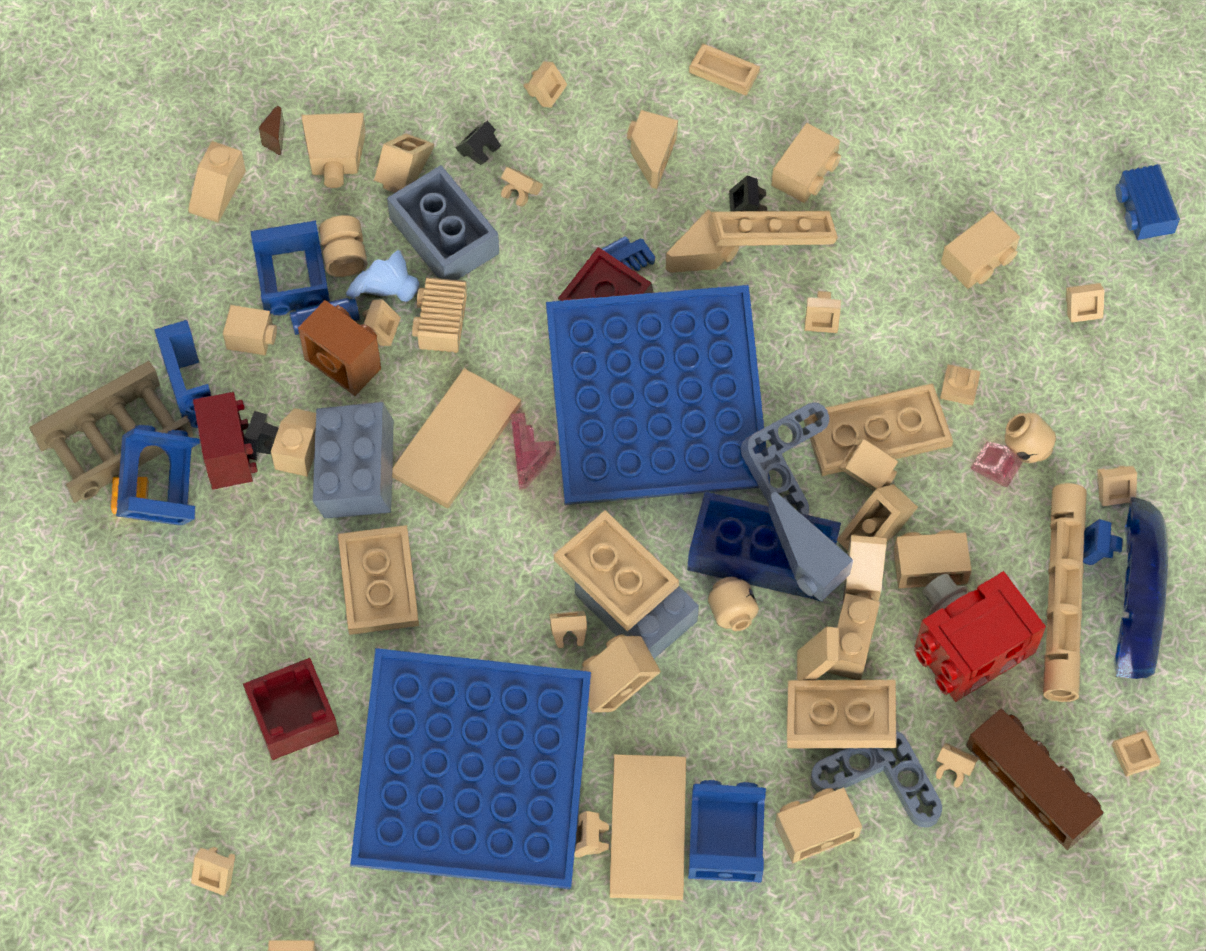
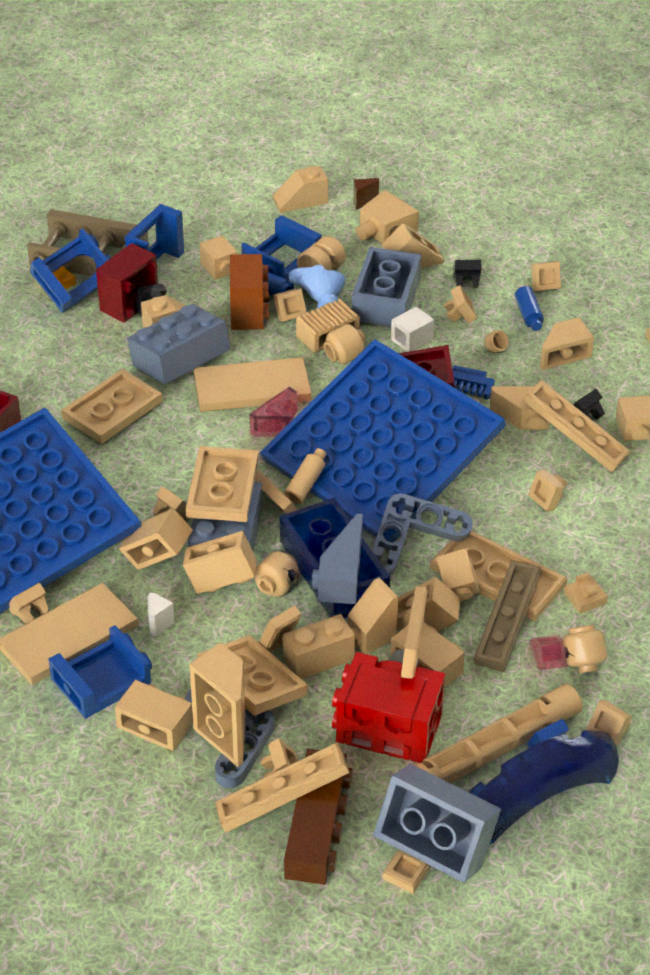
camera: 50 degrees right, 20 degrees down
(481, 320) = (344, 344): none -> tan head
(516, 249) = (412, 329): none -> white brick
(574, 133) = (529, 307): none -> blue cylinder
(594, 196) = (496, 341): none -> tan hinge
(642, 490) = (305, 476): none -> tan cylinder
(647, 531) = (275, 494): none -> tan tile
(692, 642) = (220, 562): none -> tan brick
(697, 736) = (159, 614): none -> white slope
(896, 765) = (220, 700): none -> tan slope
(939, 463) = (507, 616): none -> dark tan tile
(940, 558) = (414, 632): none -> tan tile
(995, 785) = (281, 787): none -> tan tile
(1131, 697) = (436, 822): none -> sand blue brick

